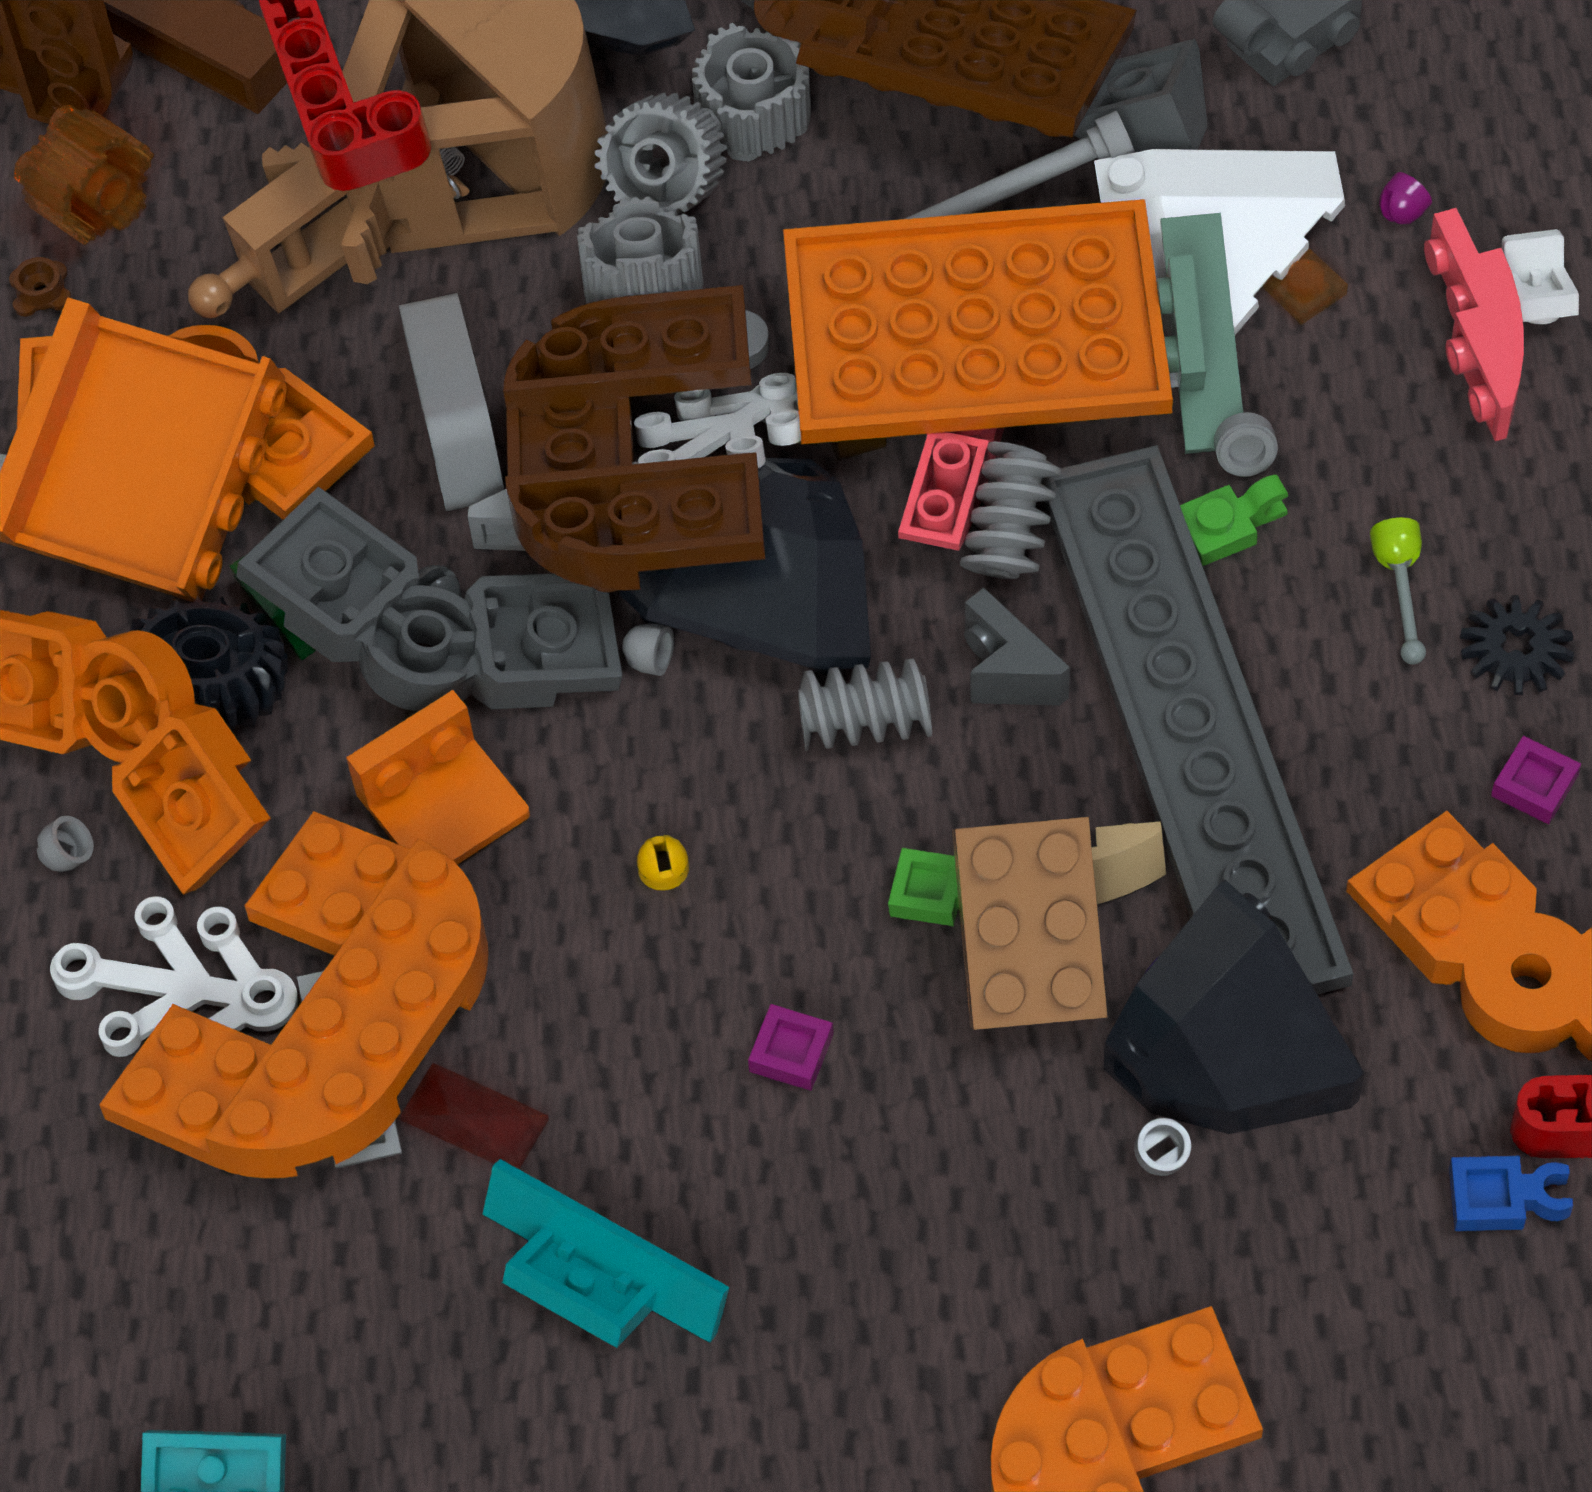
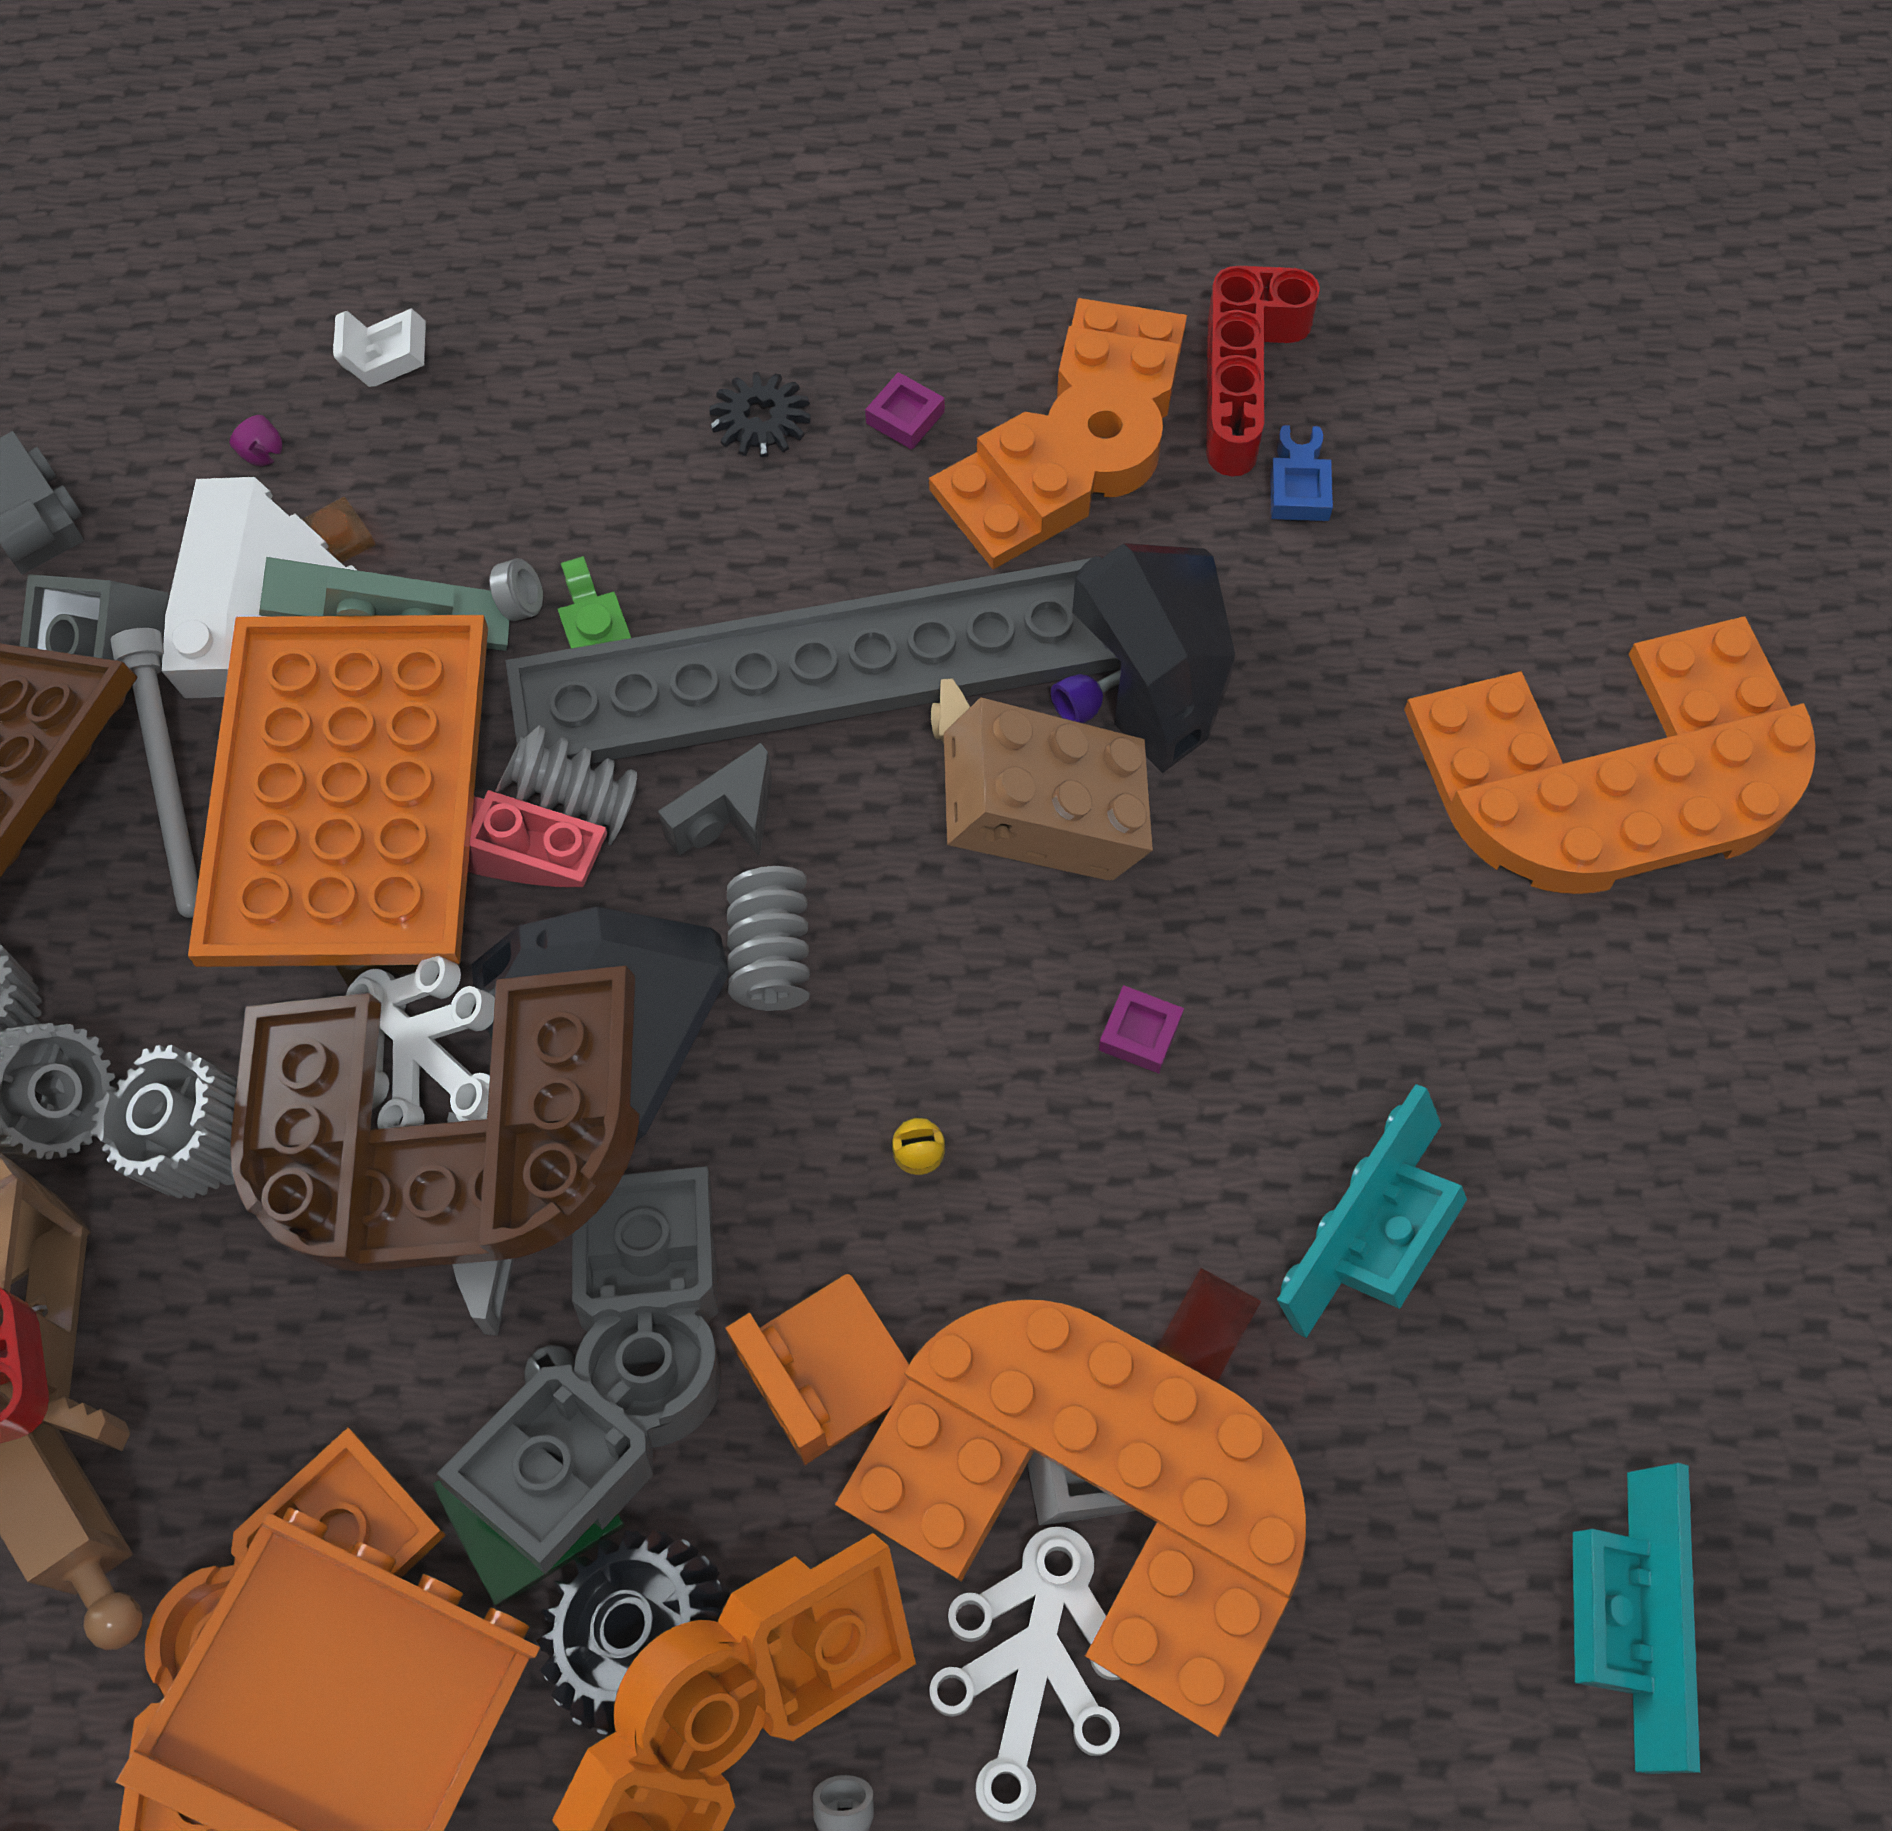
camera: 90 degrees left, 5 degrees up
(452, 400) = (303, 1337): light grey beam -> none
(649, 648) = (663, 1149): light grey hinge -> none
(925, 888) = (974, 894): bright green plate -> none
(1153, 1135) = (1256, 722): light grey hinge -> none
(1397, 547) = (650, 487): hinge -> none
(1486, 317) = (399, 384): coral slope -> none

